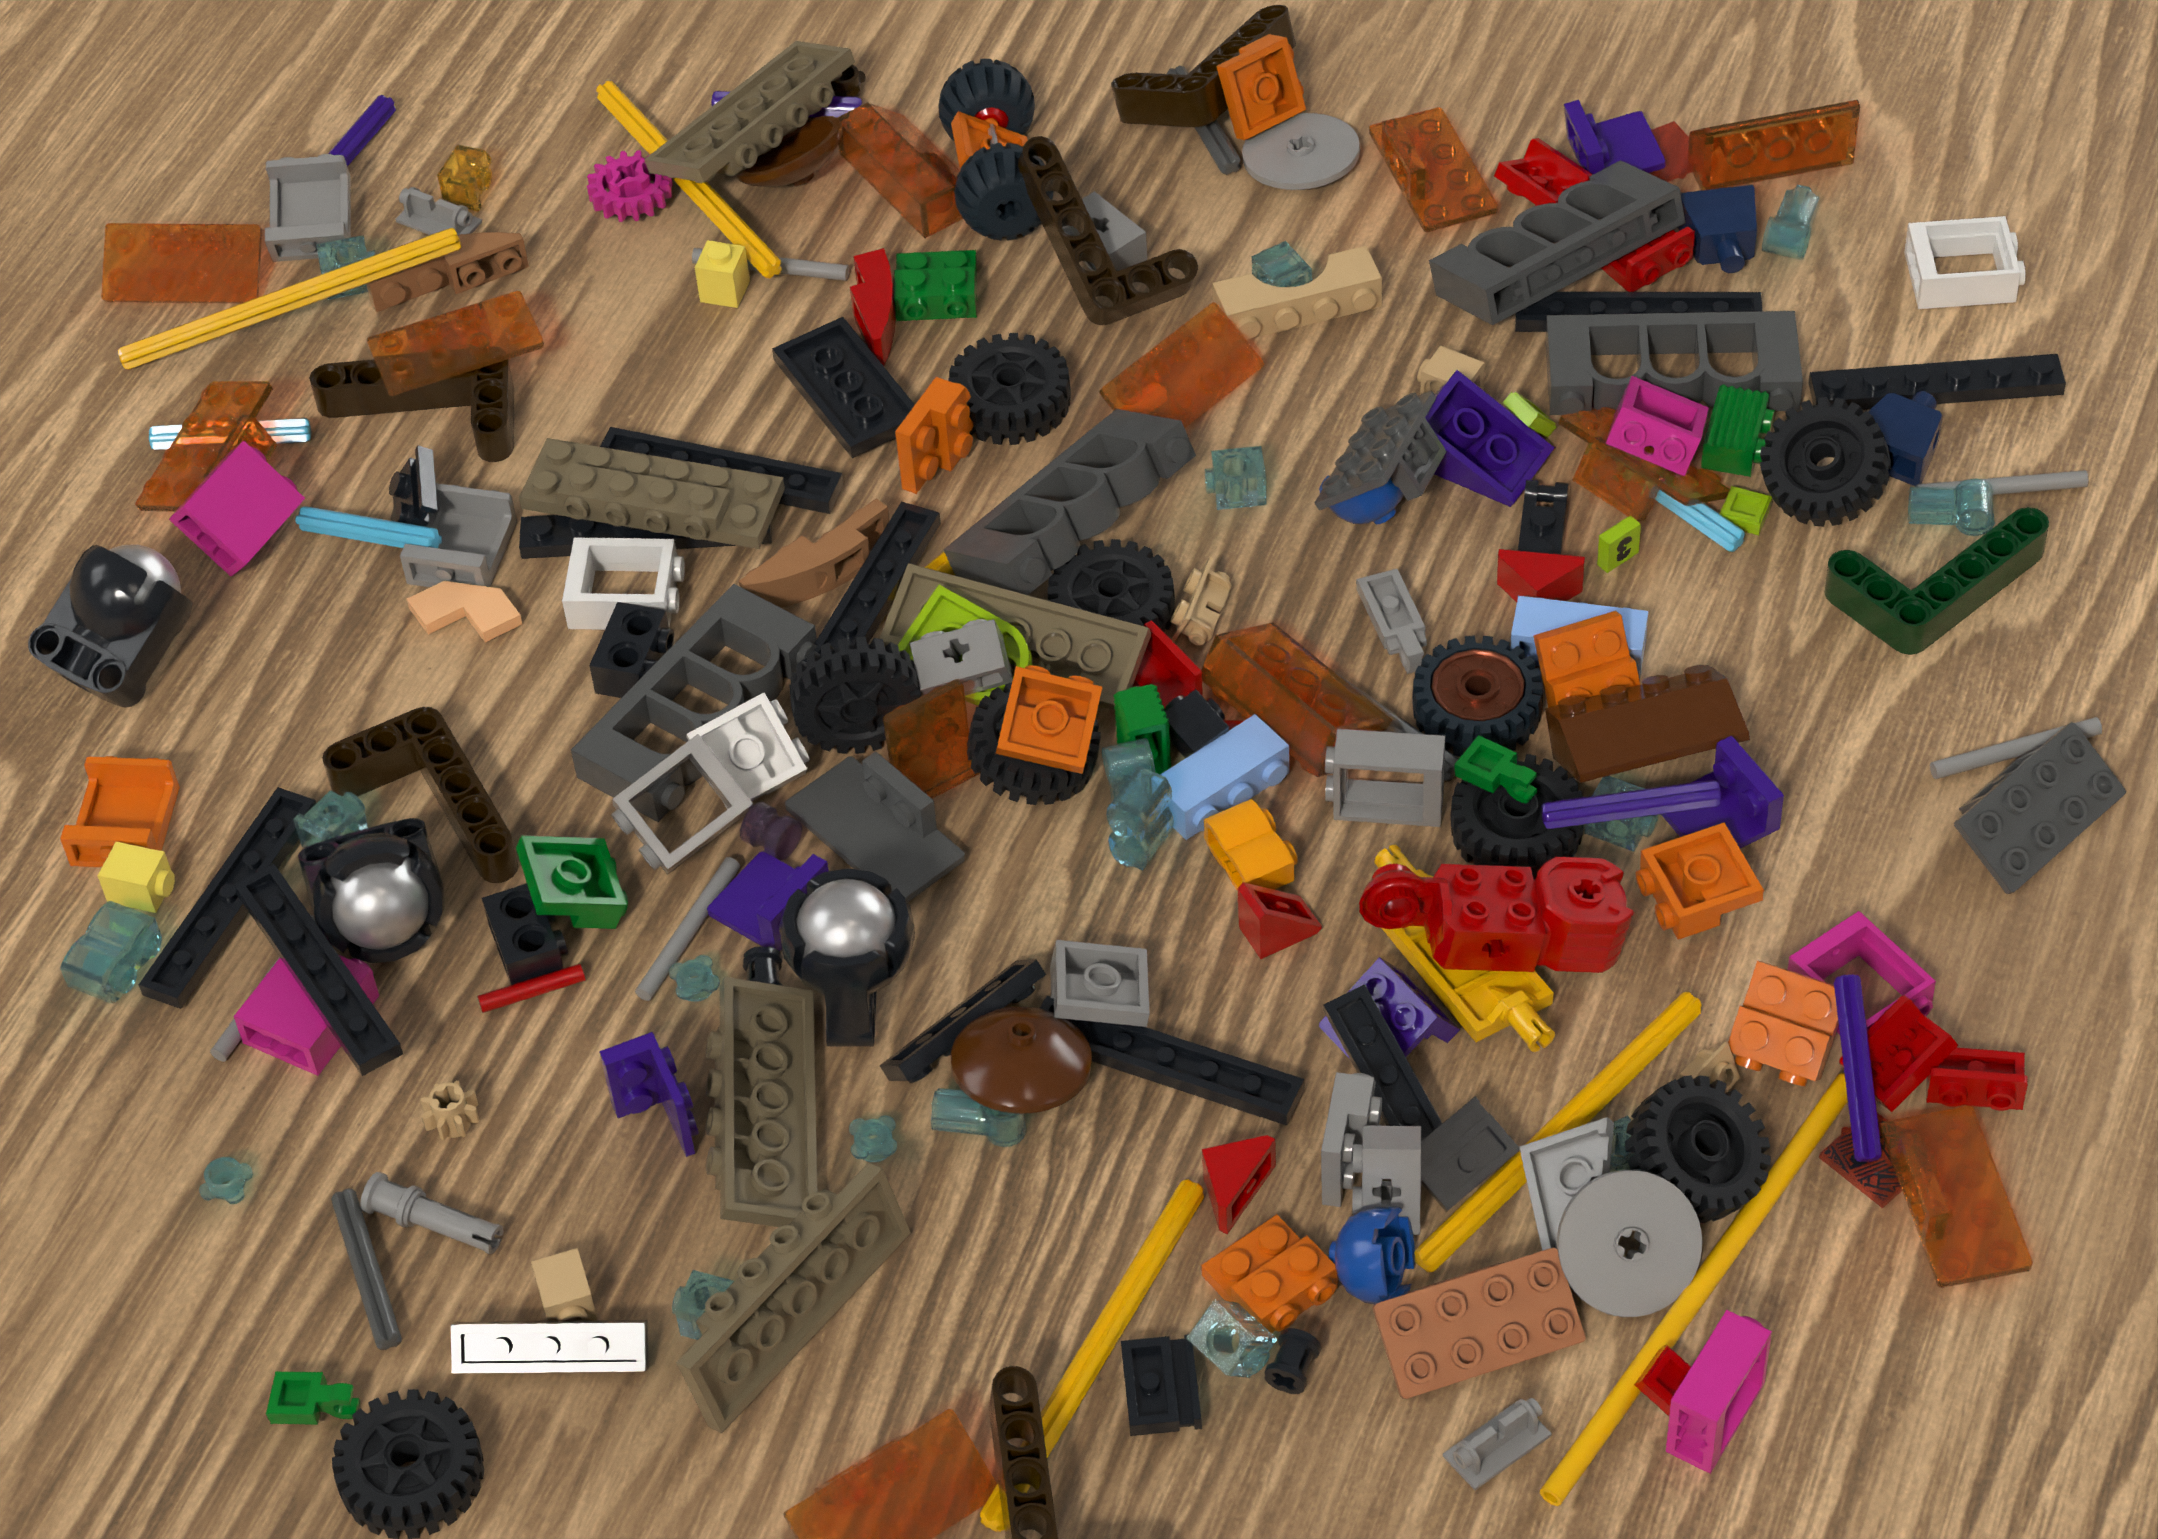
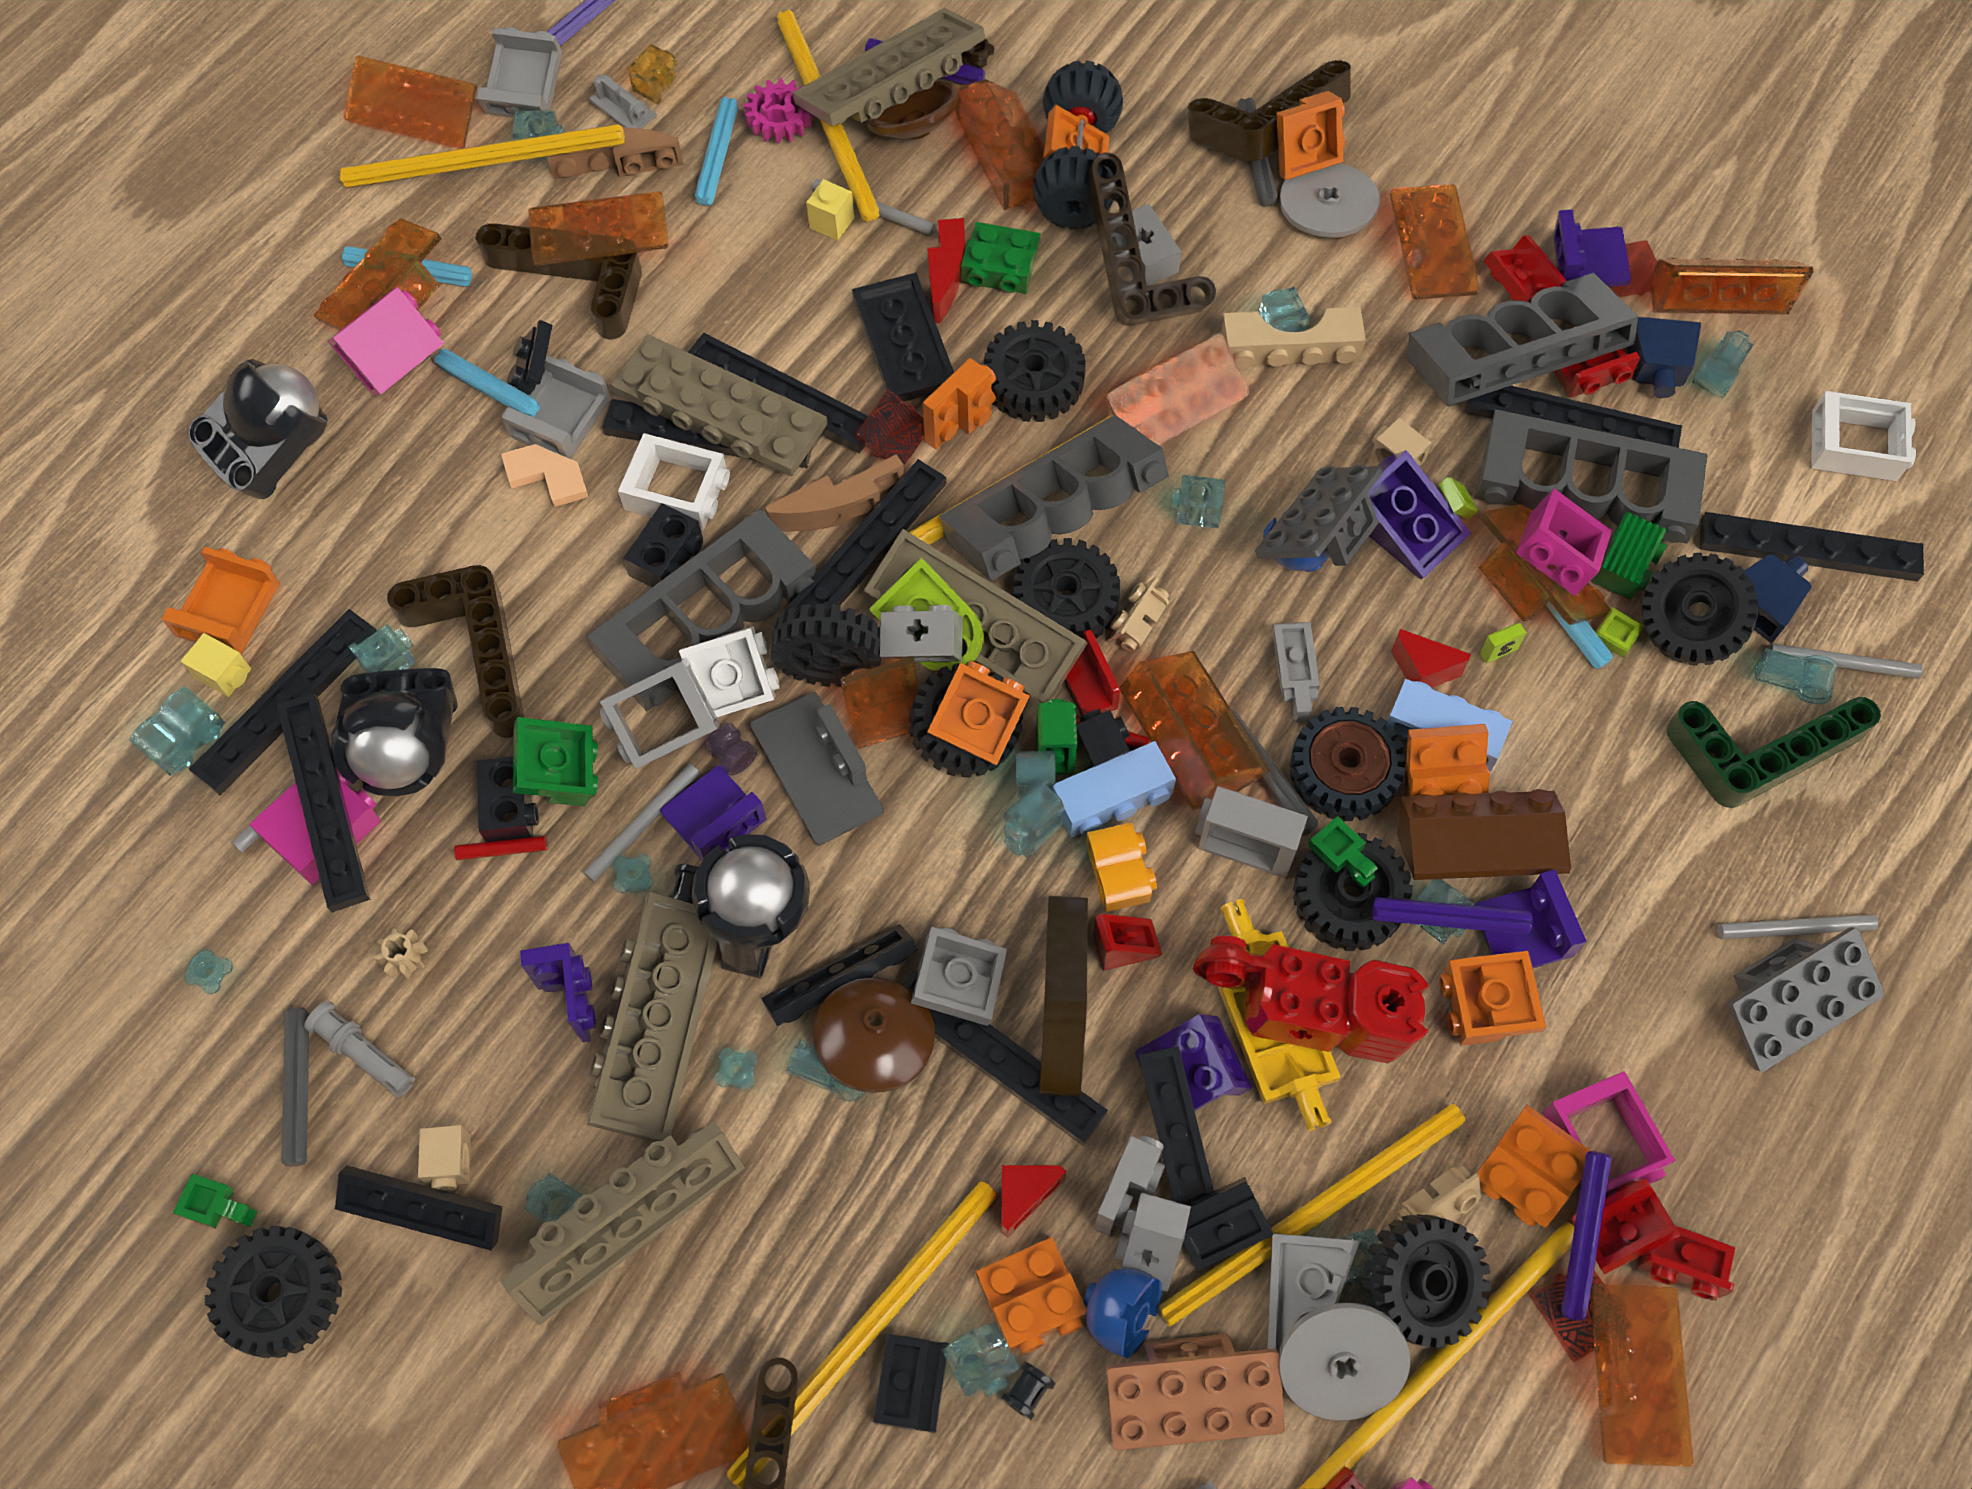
camera: 10 degrees right, 15 degrees up
(566, 243) = (716, 151): none -> medium azure axle
(861, 477) = (892, 428): none -> clear red piece
(1232, 977) = (1065, 997): none -> dark brown beam
(1543, 526) = (1442, 605): black plate -> none

